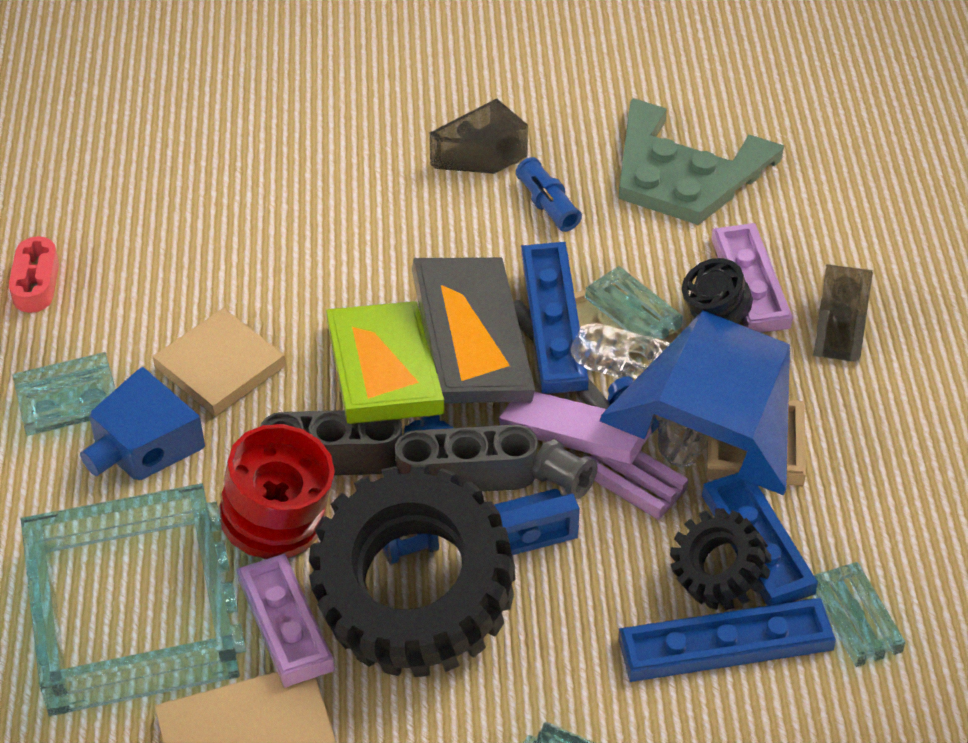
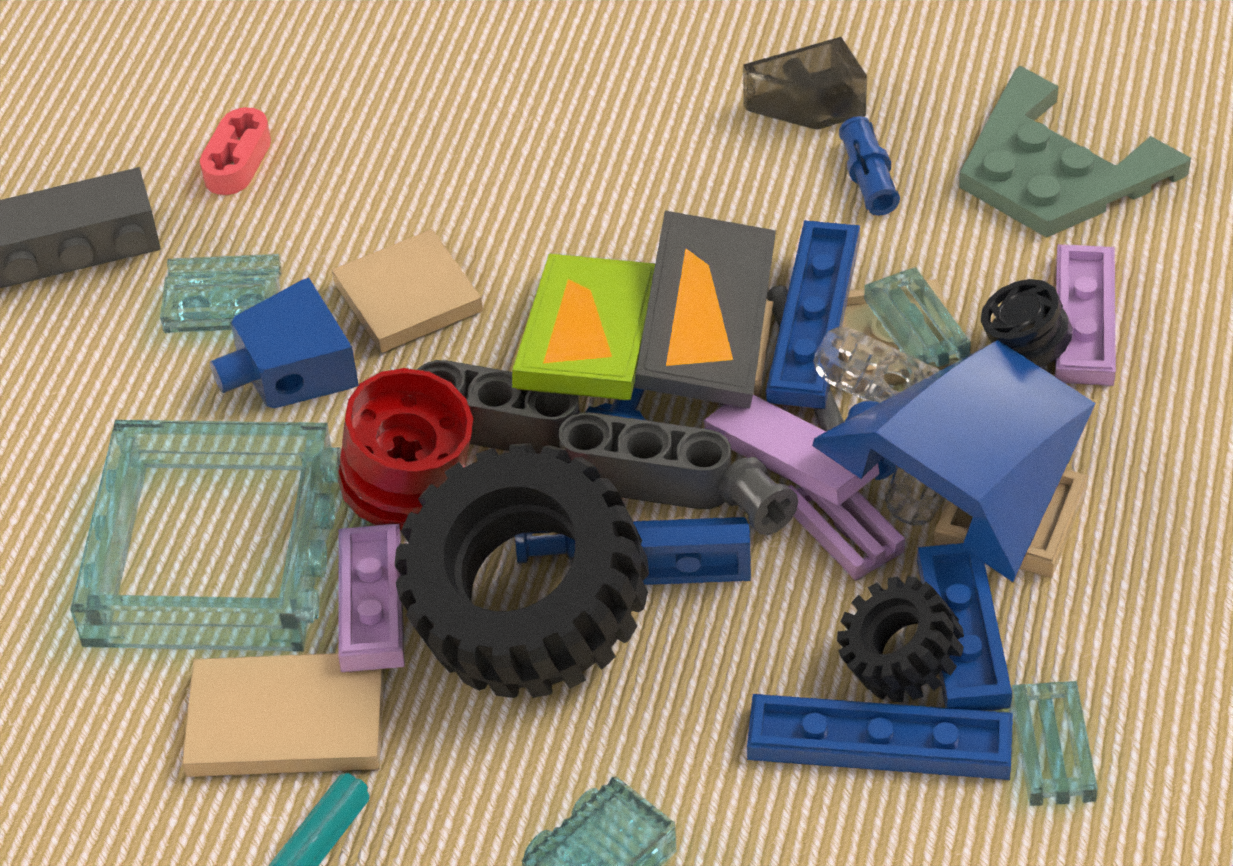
camera: 20 degrees right, 0 degrees up
(842, 312) = (1178, 376): clear smoke slope -> none

